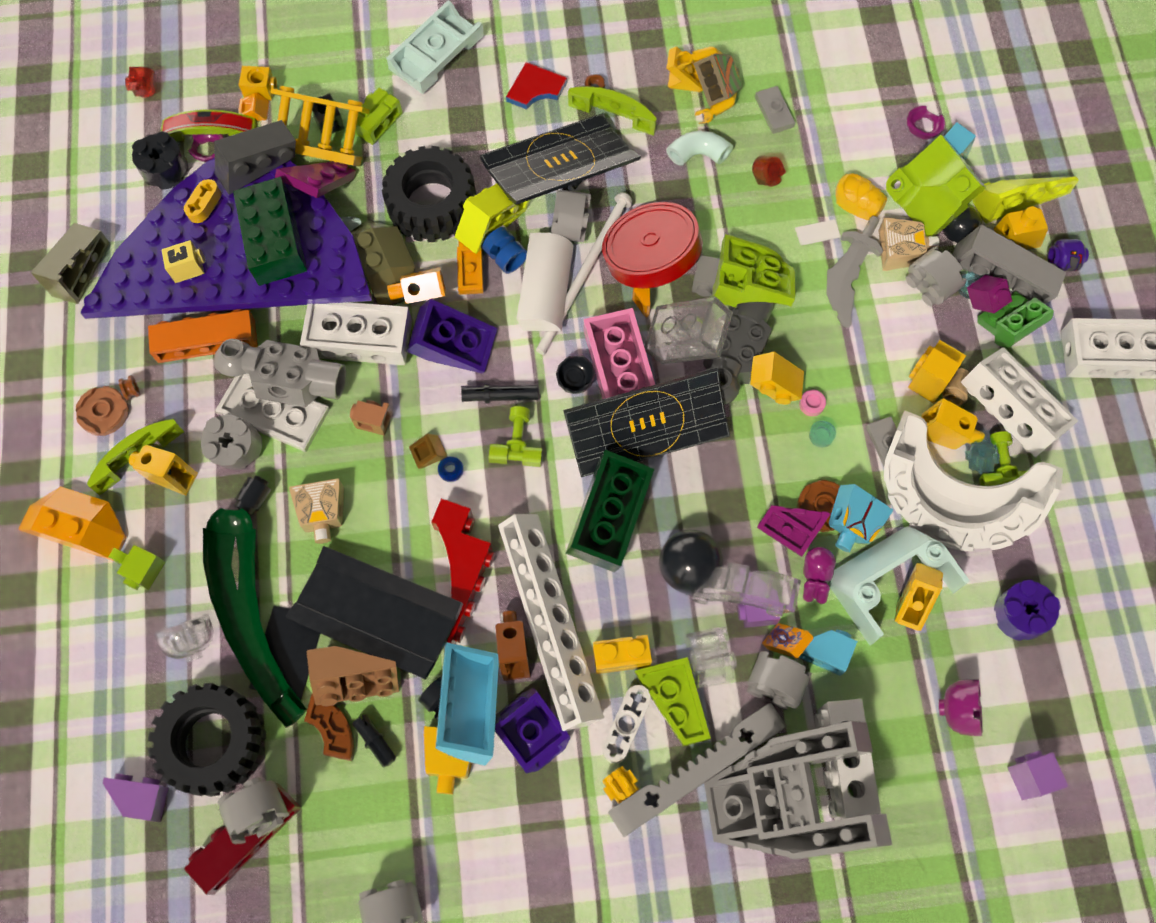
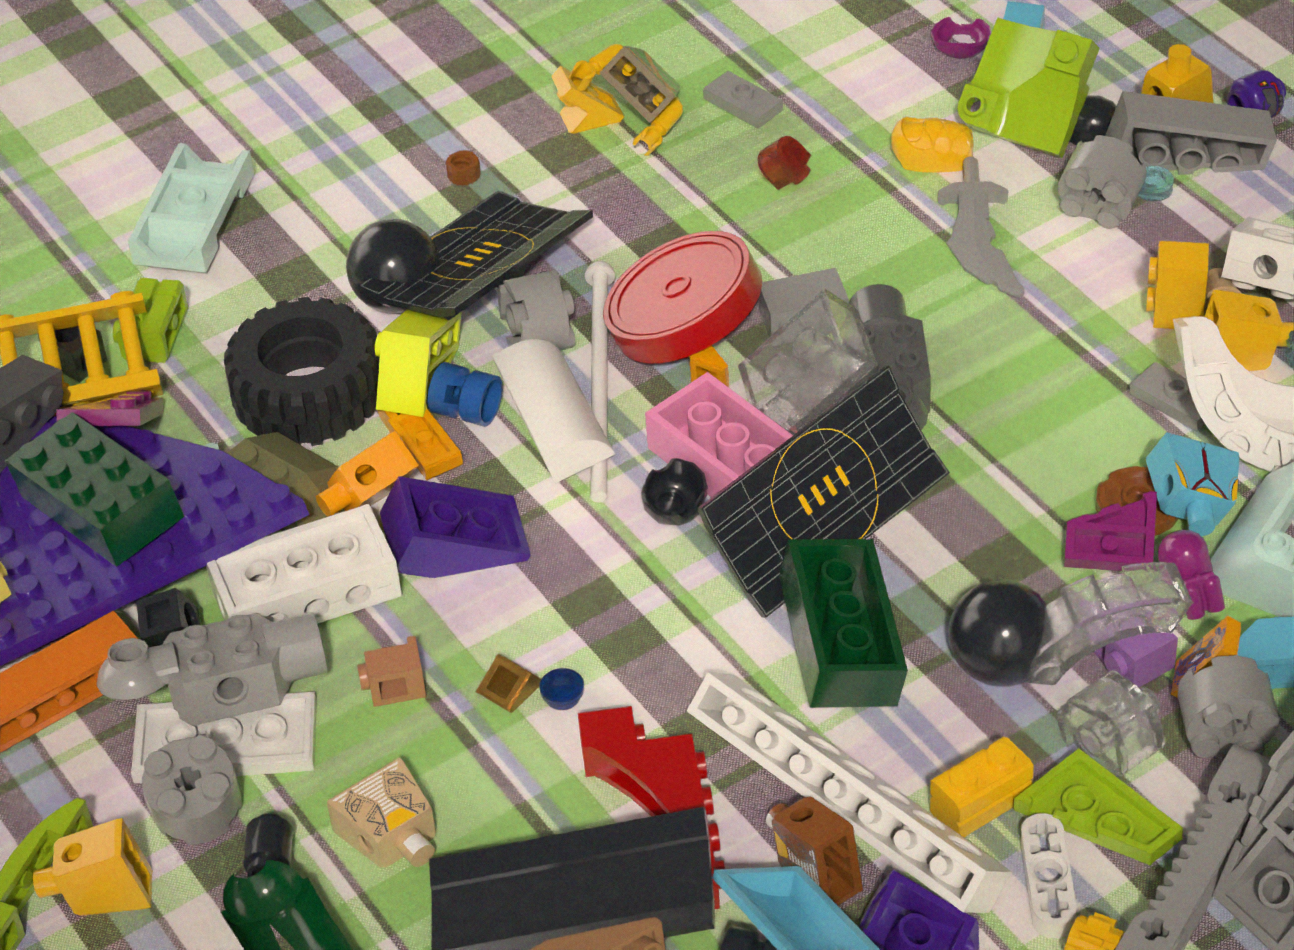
camera: 25 degrees left, 25 degrees down
(275, 328) = (165, 614): none -> black brick
(499, 393) = (558, 571): black pin -> none
(512, 139) = (390, 252): none -> black piece
(516, 448) = (644, 616): lime bar -> none
(534, 85) = (374, 198): red tile -> none
(586, 97) = (510, 172): lime slope -> none
(699, 143) = (664, 170): light aqua cylinder -> none
(752, 274) = (850, 268): lime slope -> none
(777, 378) = (969, 372): yellow brick -> none
(812, 403) = (1036, 394): bright pink tile -> none
(817, 232) = (901, 209): white sticker -> none
(822, 433) = (1076, 422): clear light blue tile -> none
(903, 242) = (1027, 168): tan torso -> none
(989, 294) = (1186, 173): magenta brick -> none
(1015, 320) = (1241, 188): bright green brick -> none
(1019, 194) = (1127, 63): neon yellow wedge -> none

